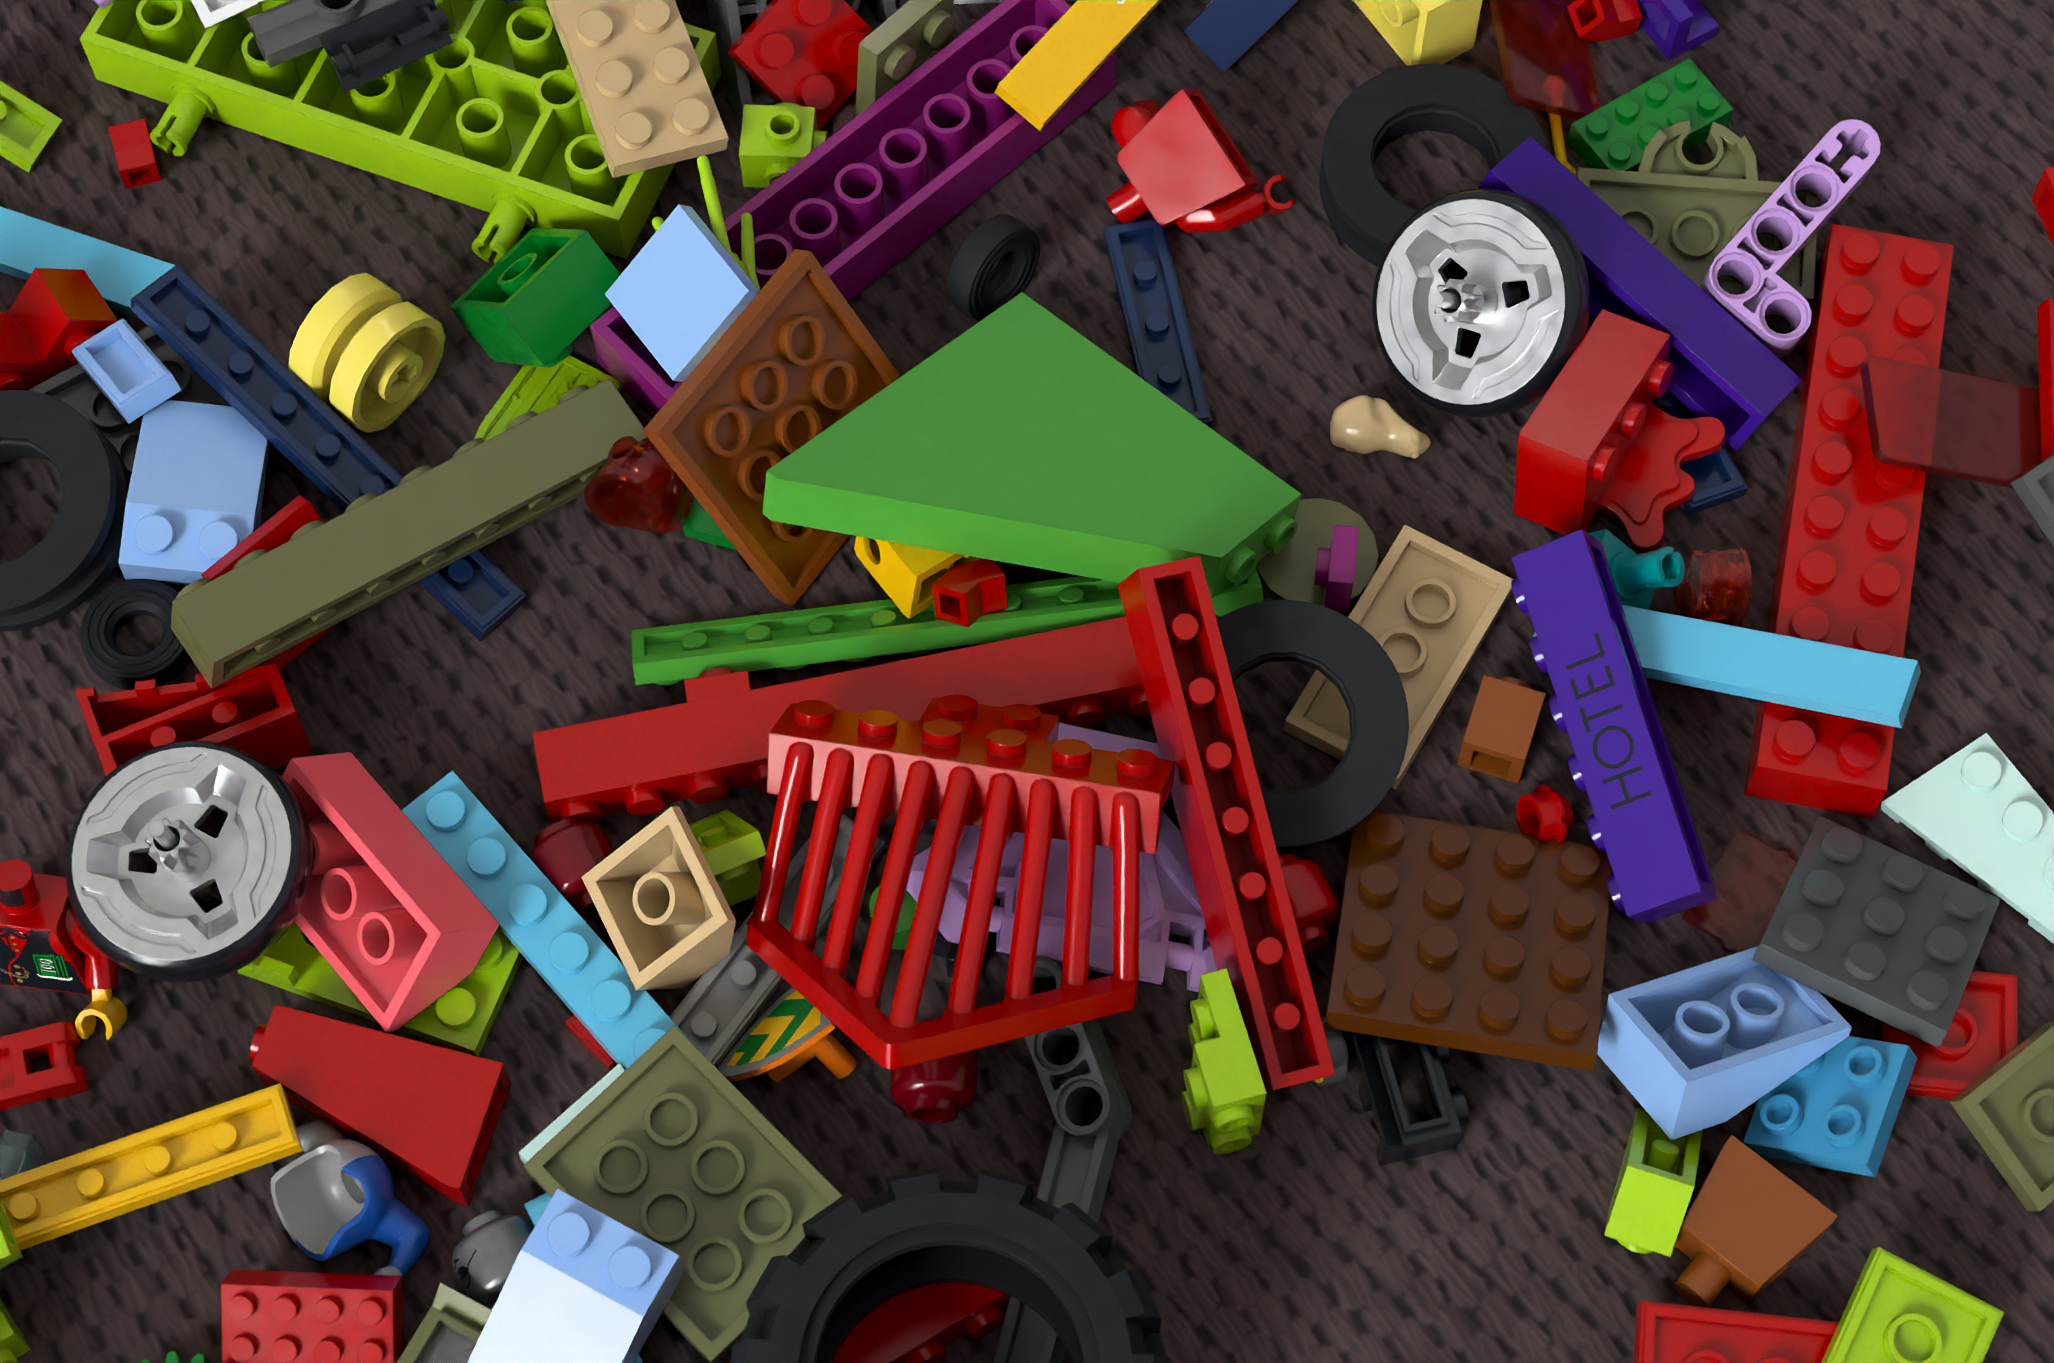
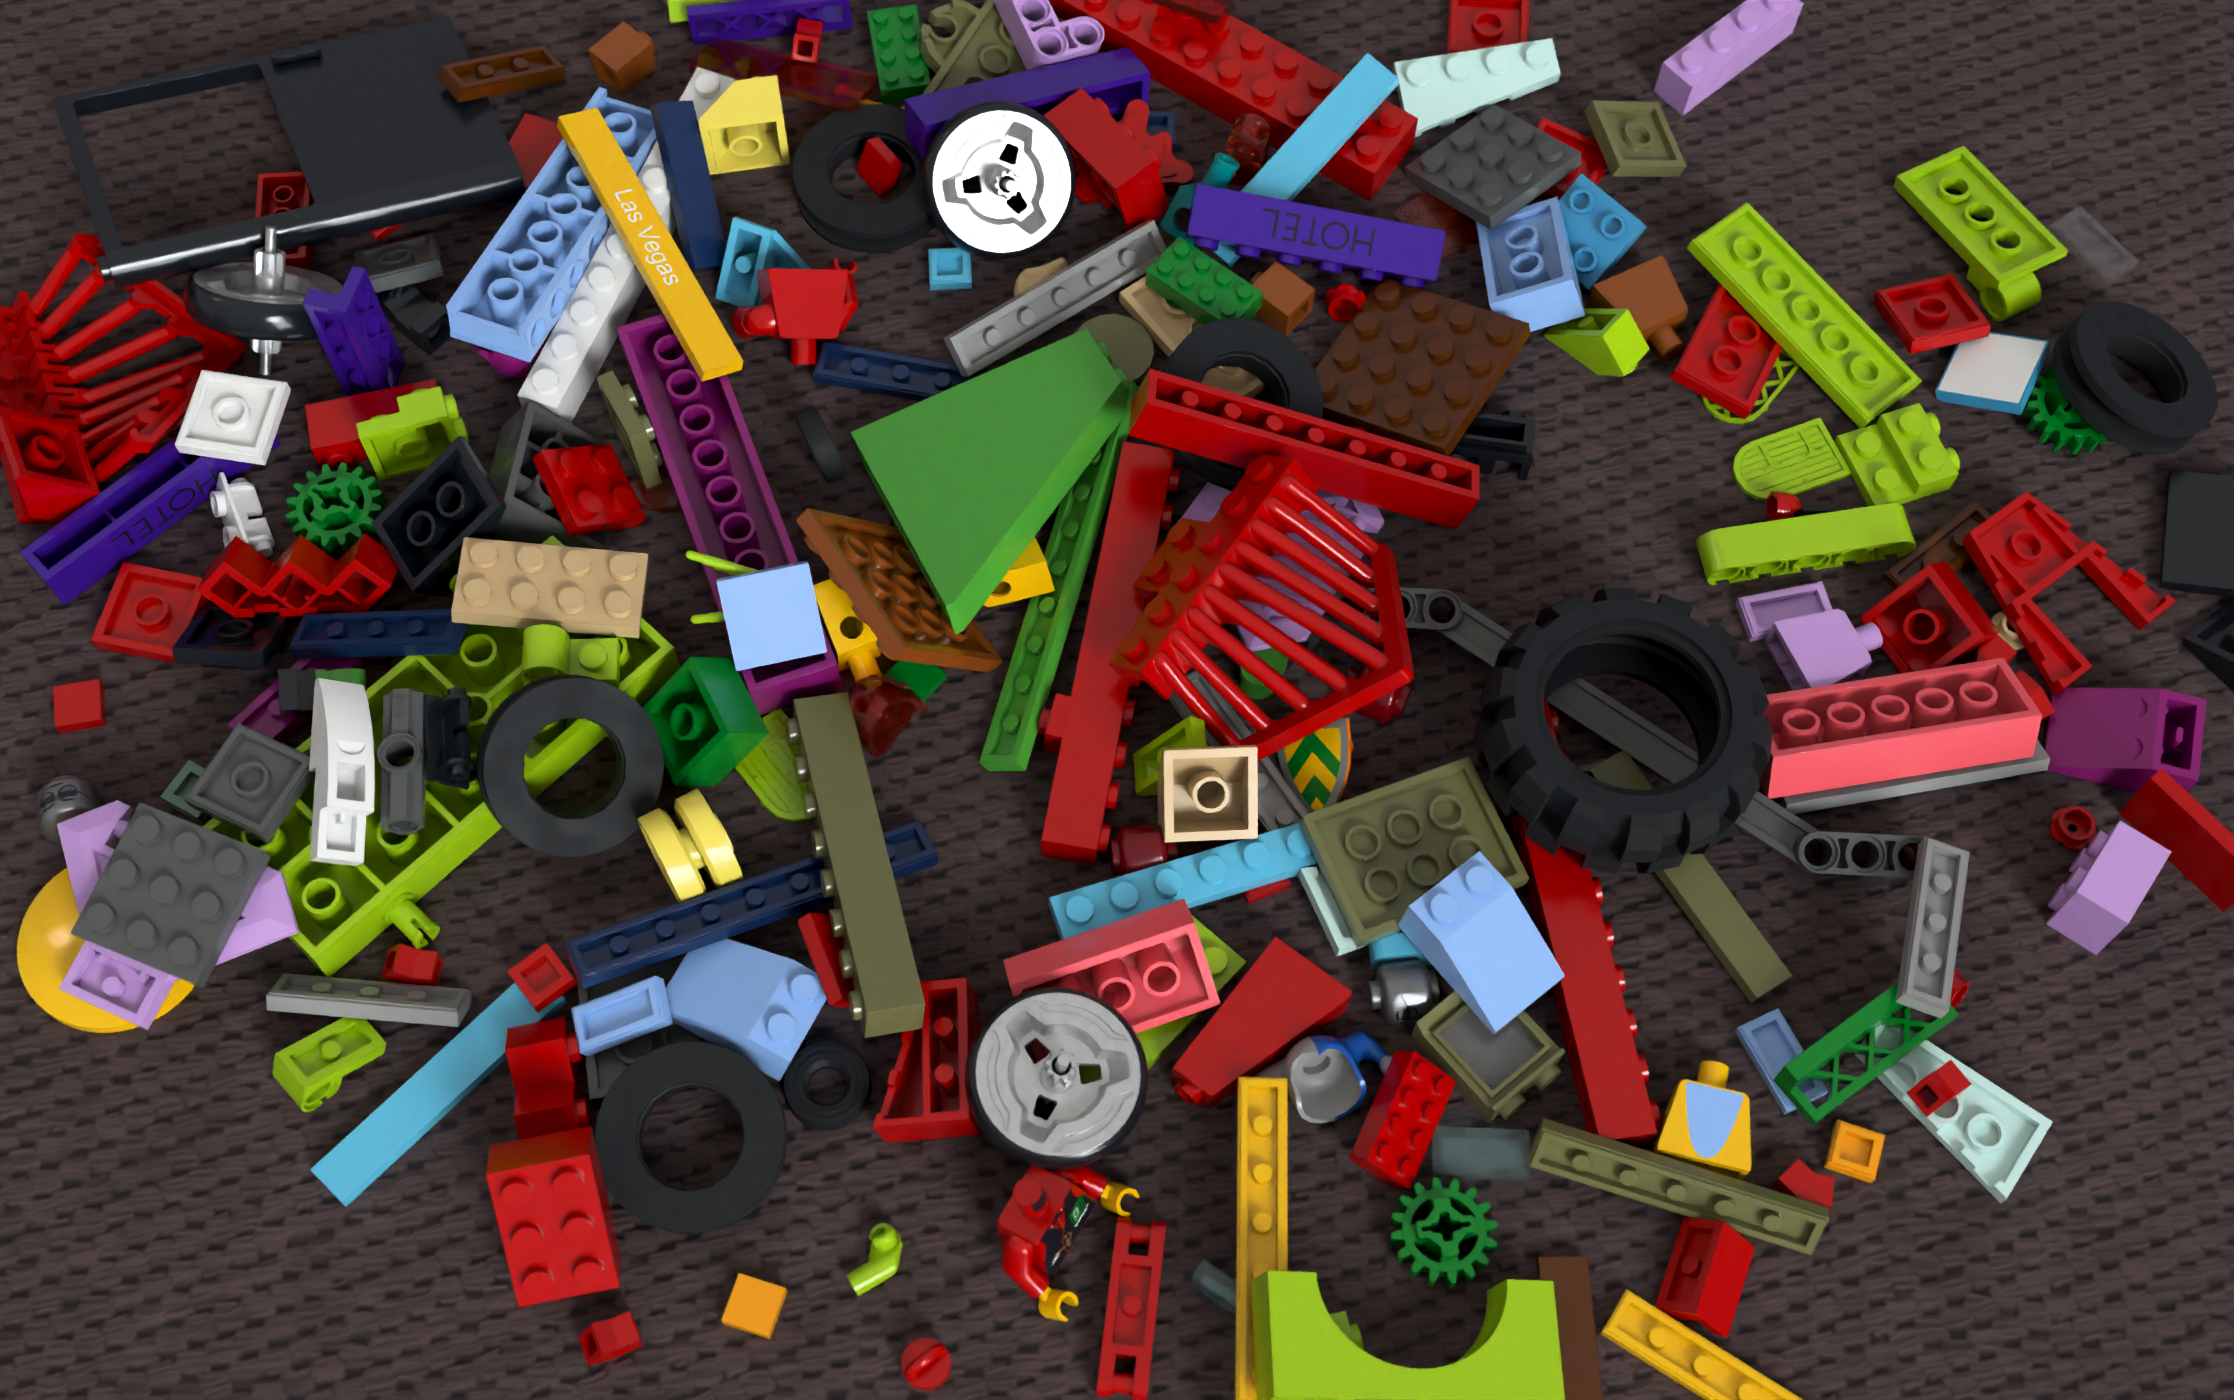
camera: 70 degrees left, 0 degrees up
(76, 128) = (369, 1000): none -> light grey tile
(146, 264) = (542, 977): none -> red plate
(332, 189) = (616, 812): none -> black tyre
(542, 115) = (551, 652): none -> lime plate
(775, 140) = (655, 531): lime brick -> none
(969, 592) = (1058, 541): red piece -> none
(1224, 1082) = (1452, 520): lime plate -> none
(1235, 89) = (749, 250): none -> medium azure slope
(1337, 567) = (1139, 334): magenta plate -> none
(1345, 317) = (949, 269): none -> medium azure tile
(1357, 454) = (1055, 299): none -> light grey plate
(1454, 169) = (879, 167): none -> red tile
(1454, 620) = (1201, 285): none -> green piece

